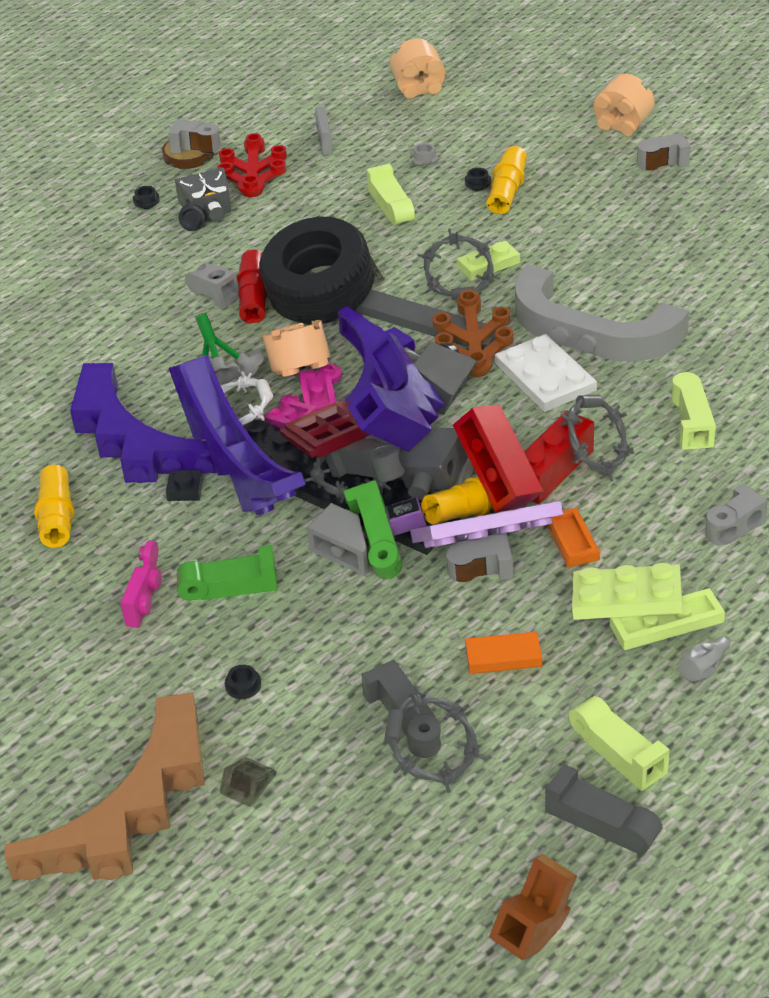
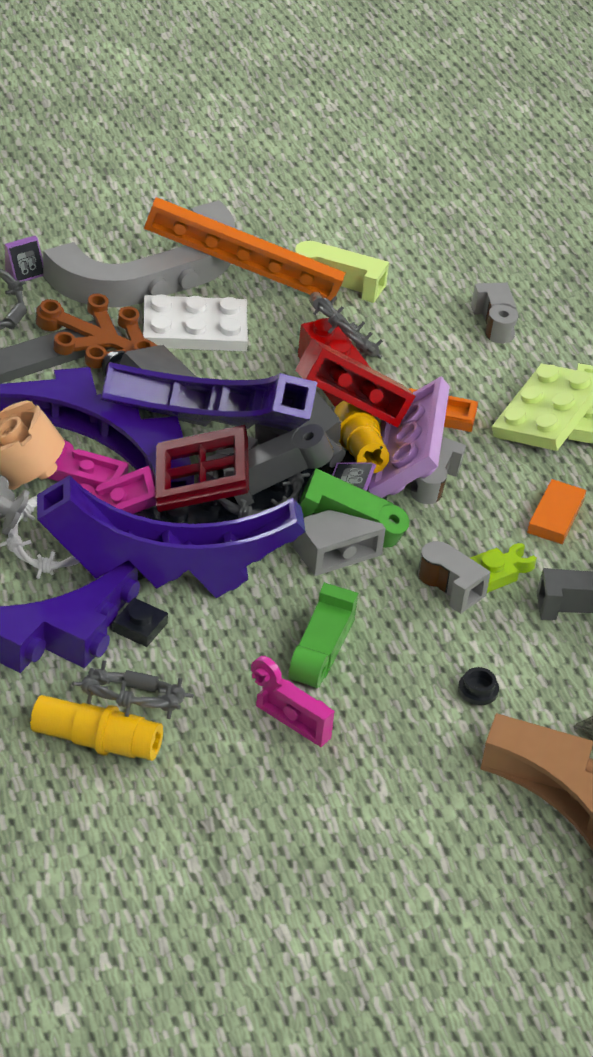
camera: 70 degrees left, 0 degrees up
(82, 519) = (173, 693): none -> dark grey piece
(359, 620) = (453, 574): none -> light grey leg
(399, 641) = (505, 567): none -> lime plate
(519, 259) = (24, 259): none -> slope
(633, 355) = (243, 249): none -> orange plate

